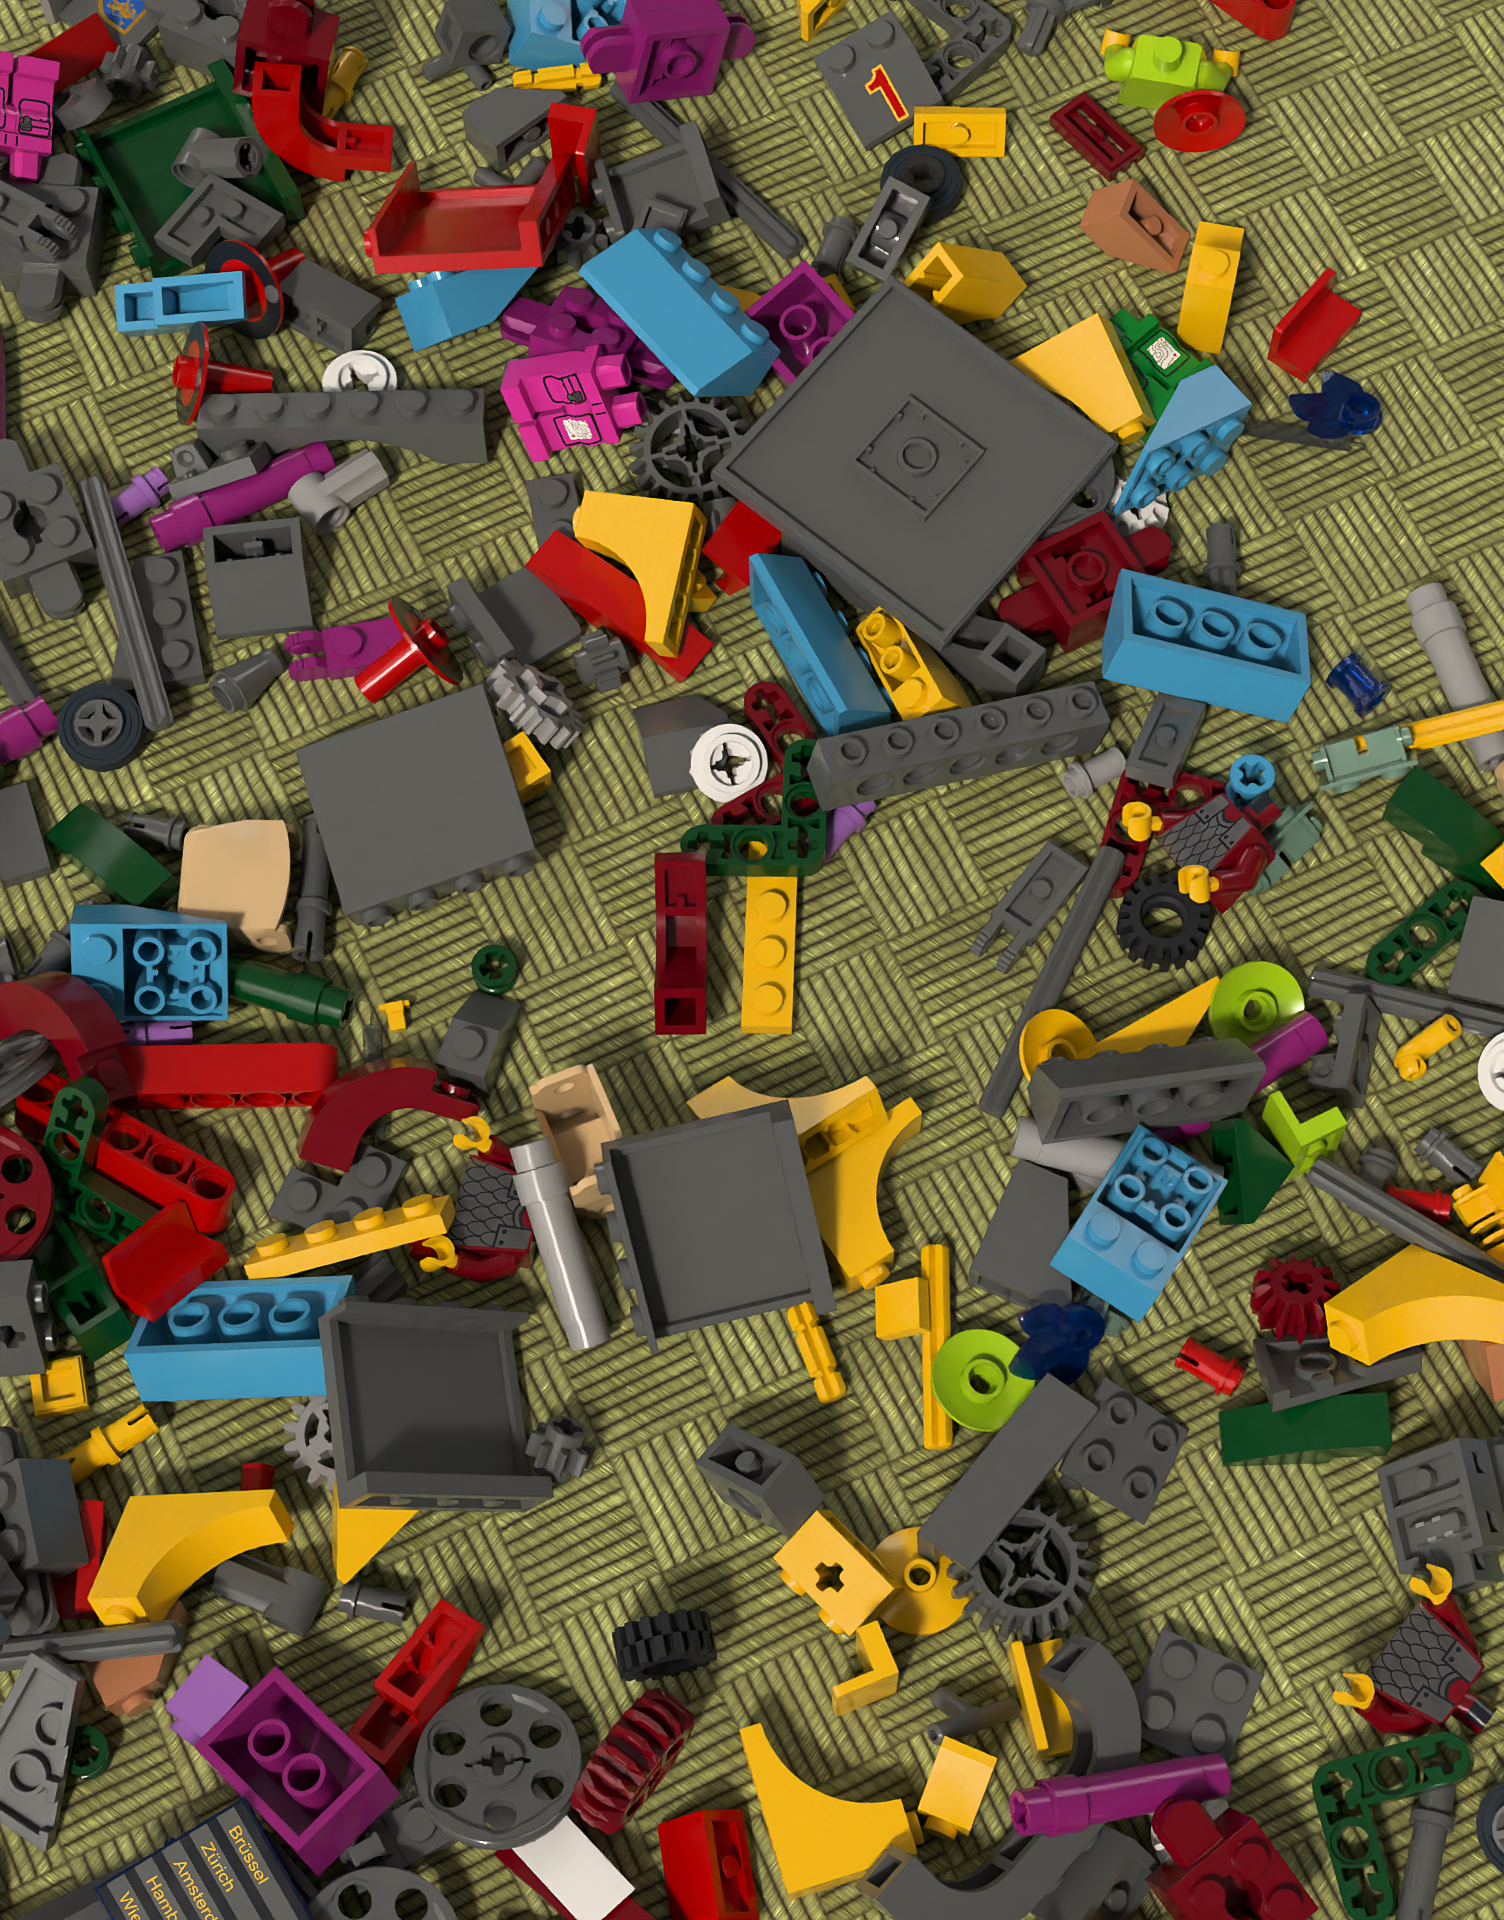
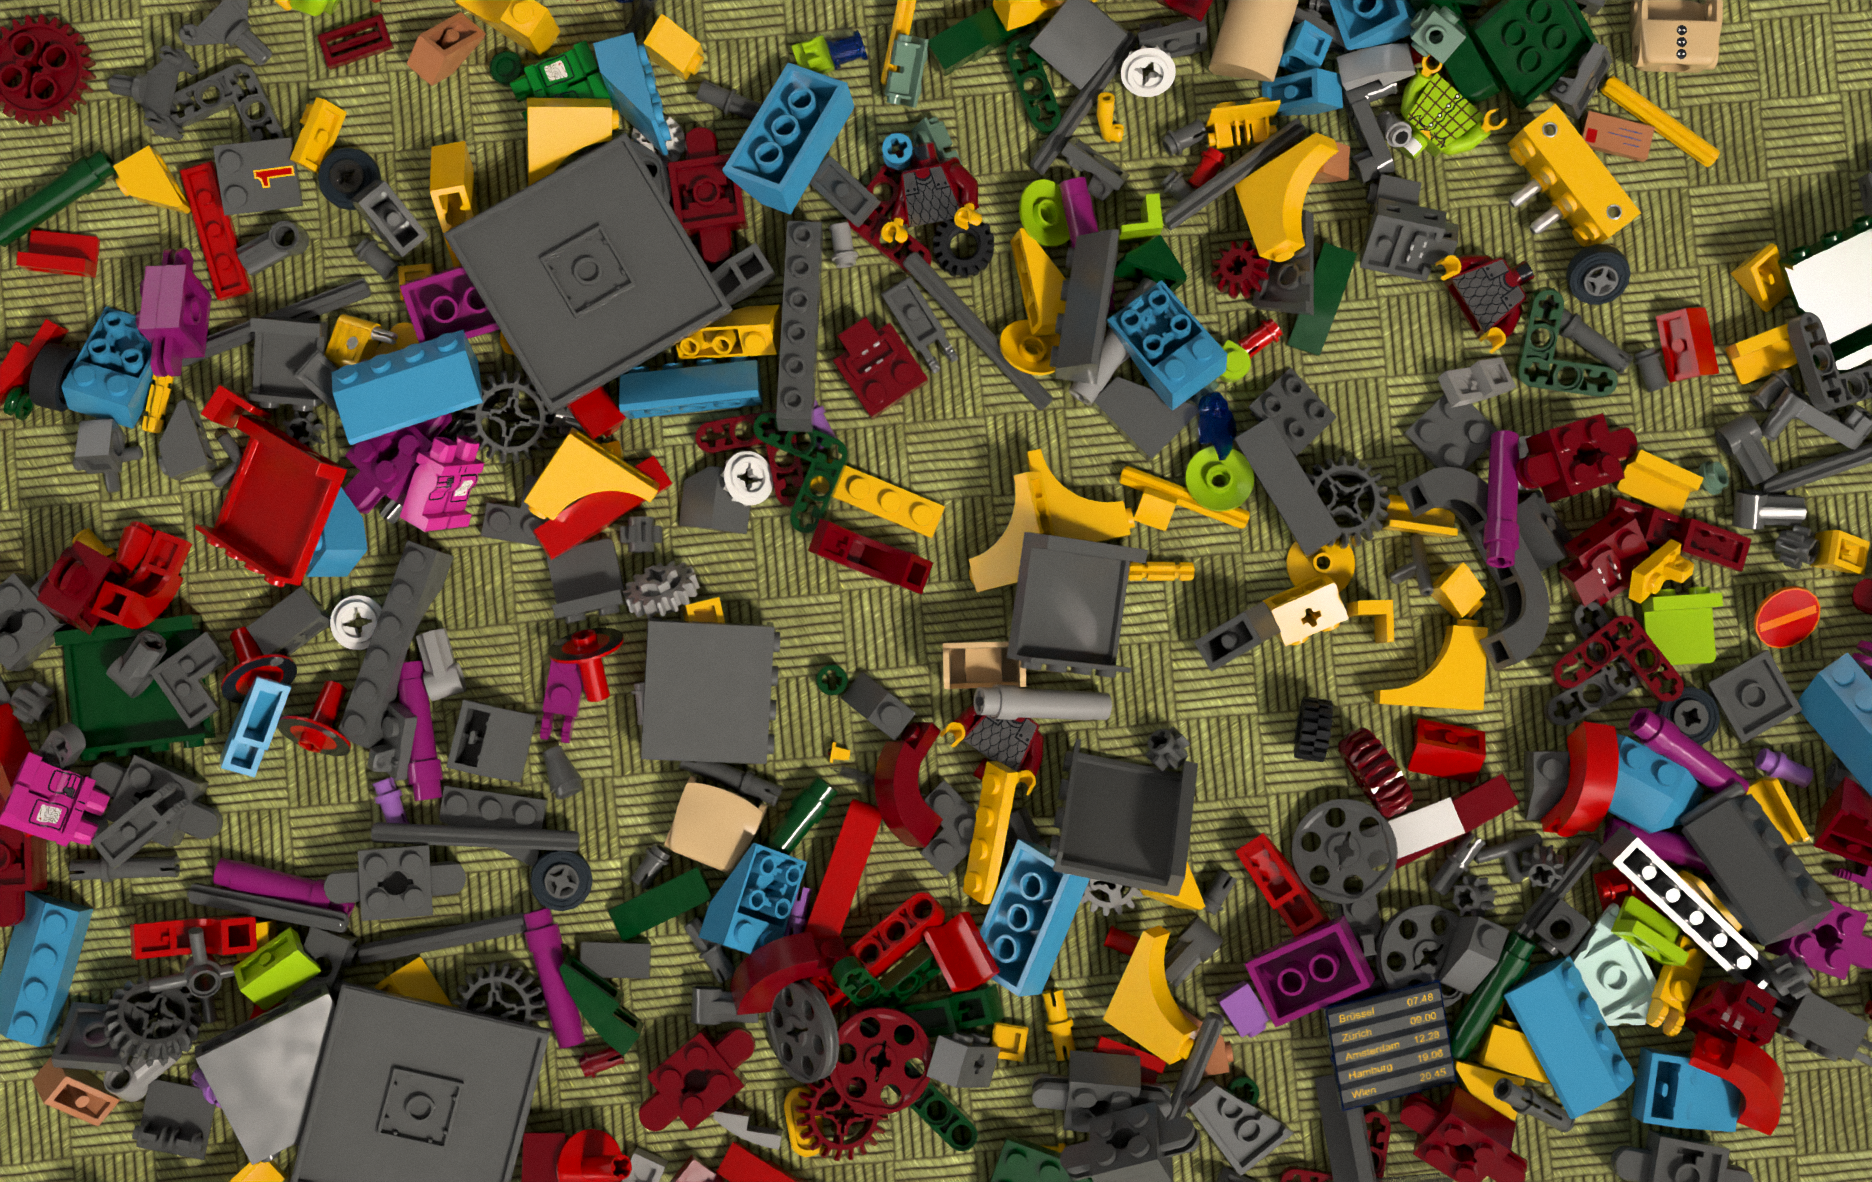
camera: 70 degrees left, 20 degrees up
(360, 106) = (133, 545): none -> red cone
(723, 252) = (355, 340): none -> yellow piece
(780, 77) = (215, 231): none -> red tile
(804, 134) = (270, 247): none -> dark grey piece
(948, 873) = (878, 367): none -> dark red piece
(1142, 301) = (506, 67): none -> dark green tile
(1158, 1337) = (1237, 362): none -> lime plate
(1258, 472) = (674, 48): none -> yellow slope
(1283, 1710) = (1476, 383): none -> light grey slope
(1329, 646) = (813, 55): none -> lime tile

